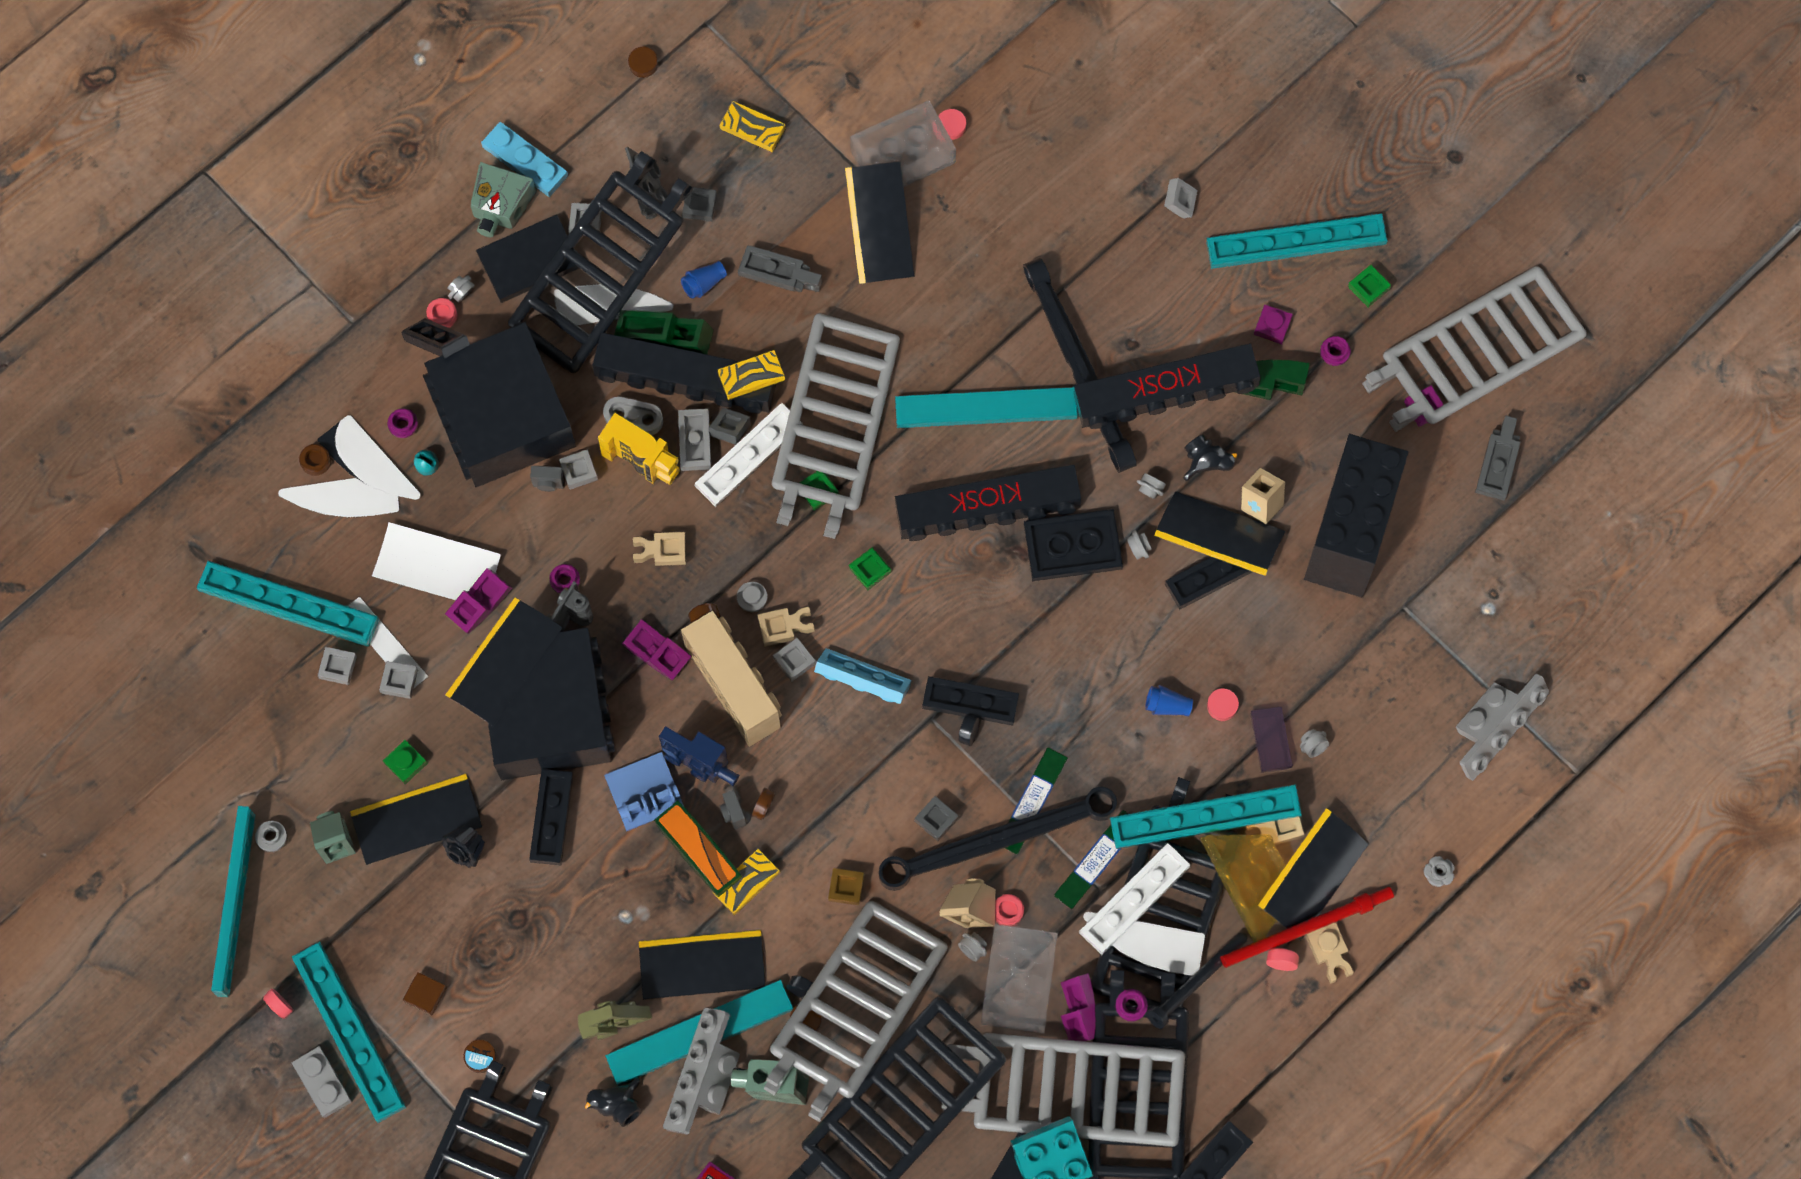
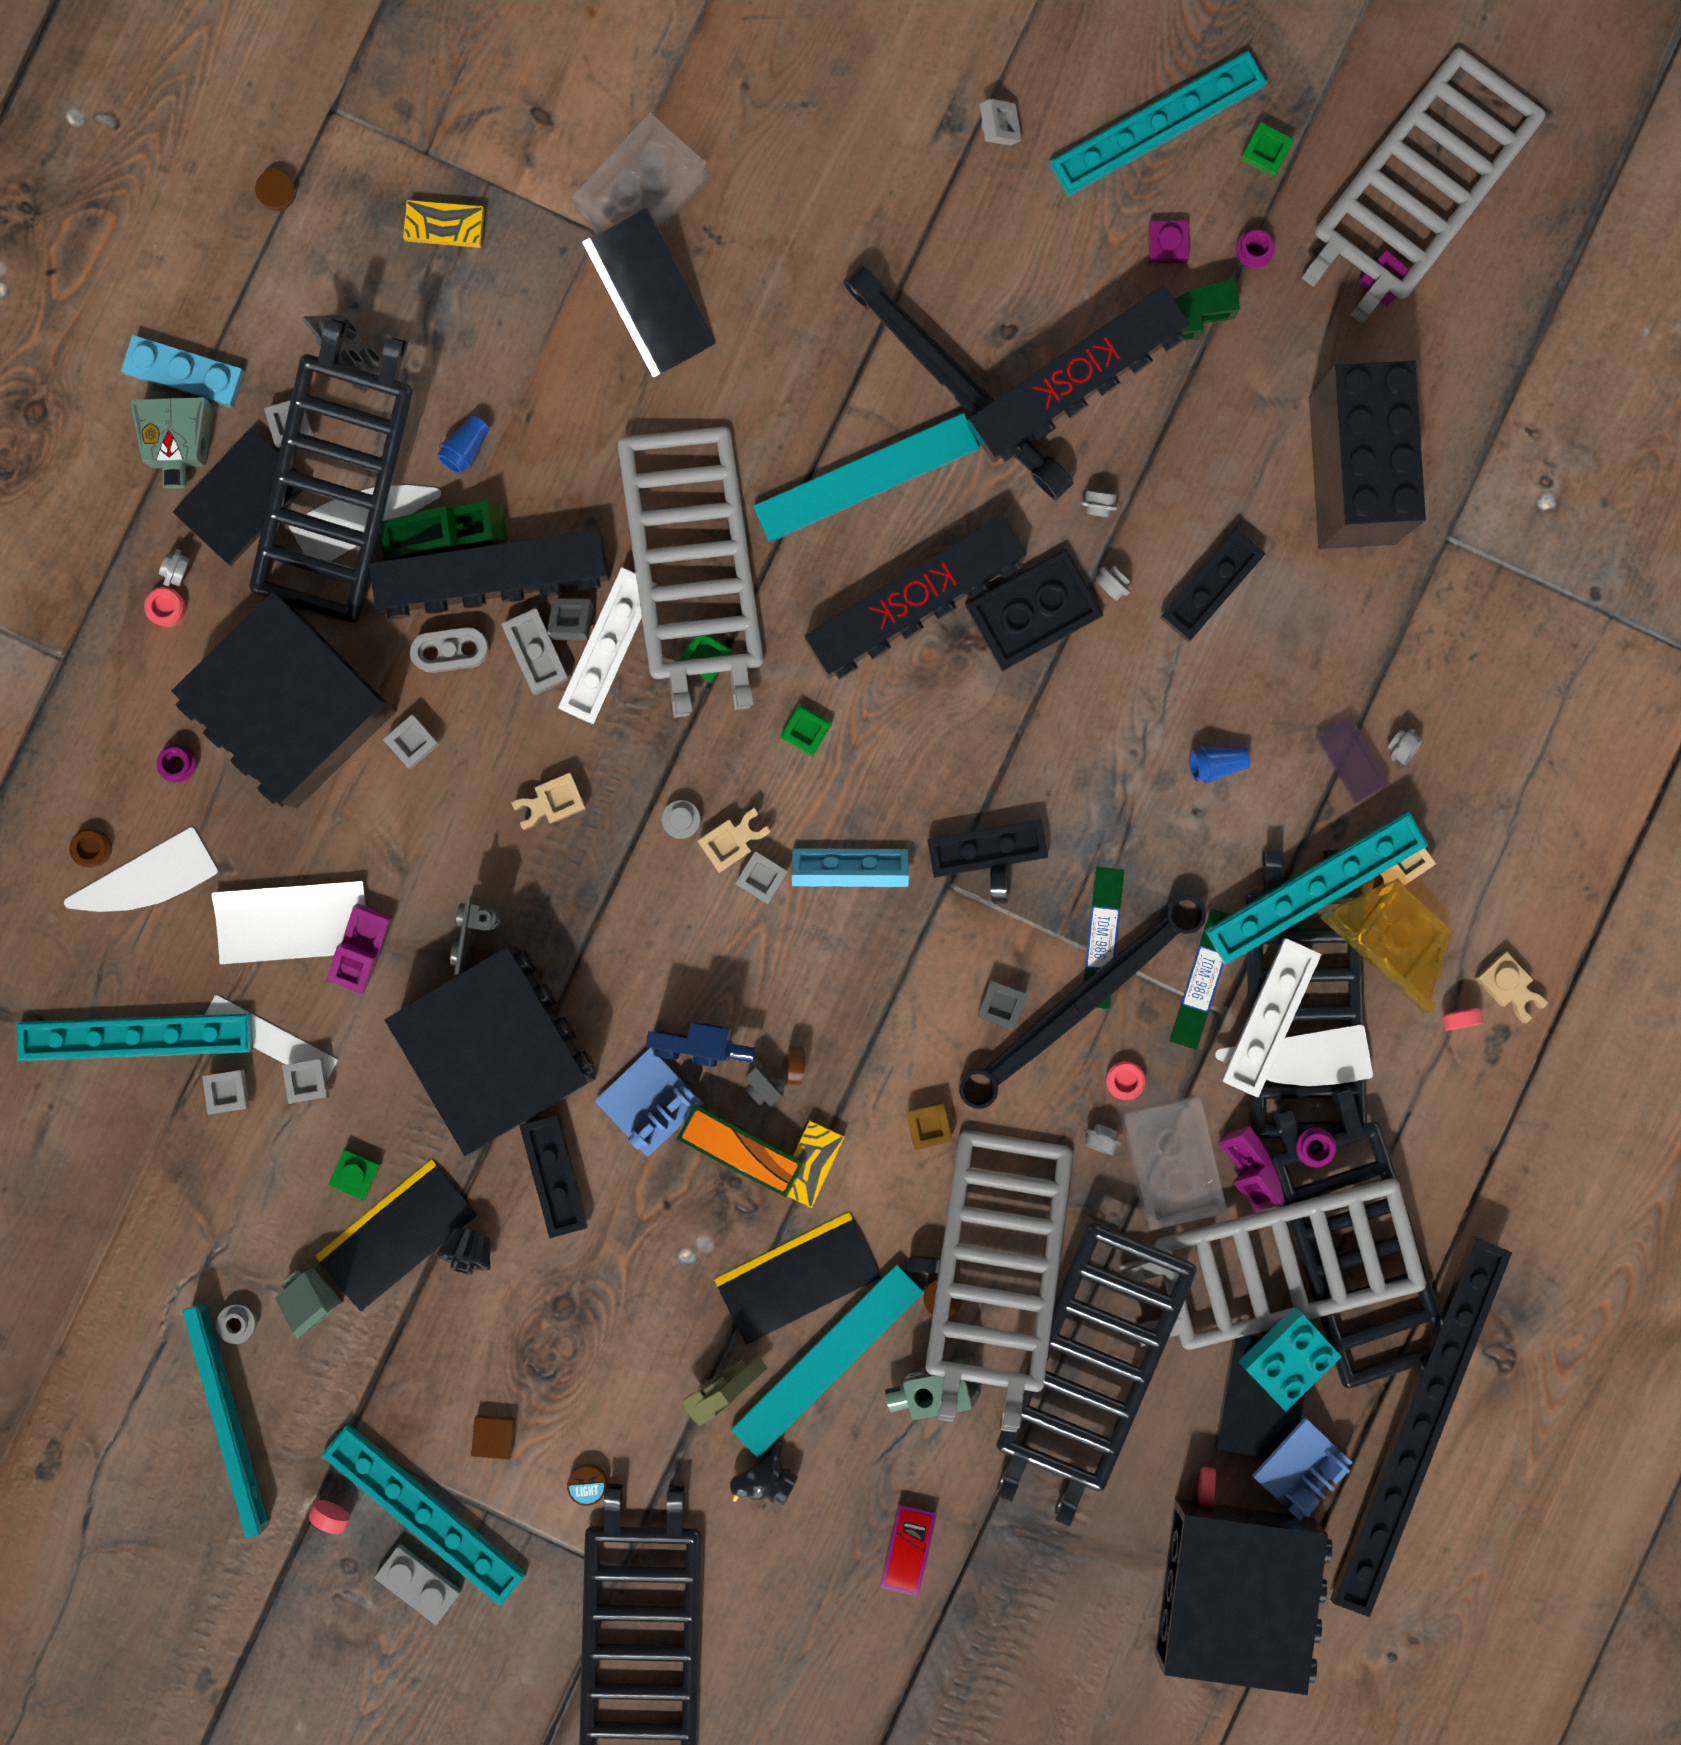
camera: 20 degrees left, 15 degrees up
(364, 459) = (150, 825): white sticker -> none
(422, 466) = (222, 808): teal hinge -> none
(435, 338) = (171, 649): black tile -> none
(504, 661) = (424, 1026): black sticker -> none
(547, 478) = (378, 768): dark grey plate -> none
(560, 571) = (438, 882): magenta plate -> none
(639, 449) = (476, 692): yellow hips -> none
(656, 650) = (593, 927): magenta slope -> none
(700, 204) = (422, 350): dark grey plate -> none
(701, 610) = (634, 865): reddish brown tile -> none
(704, 1074) = (853, 1411): light grey bracket -> none
(731, 678) = (698, 934): tan brick -> none
(751, 374) = (572, 549): yellow tile -> none
(778, 270) = (549, 399): dark grey hinge -> none
(954, 123) = (687, 127): coral tile -> none
(970, 904) = (1083, 1096): tan slope -> none
(1159, 1015) = (1353, 1149): black bar -> none
(1207, 457) = (1154, 441): black animal -> none
(1219, 533) = (1203, 531): black sticker -> none
(1222, 704) = (1281, 739): coral tile -> none
(1263, 495) = (1239, 467): tan brick -> none
(1314, 871) = (1461, 904): black sticker -> none
(1360, 904) = (1527, 919): red bar -> none
(1433, 877) = (1593, 845): light grey plate -> none
(1495, 720) = (1603, 638): light grey bracket -> none
(1499, 461) = (1499, 314): dark grey hinge -> none

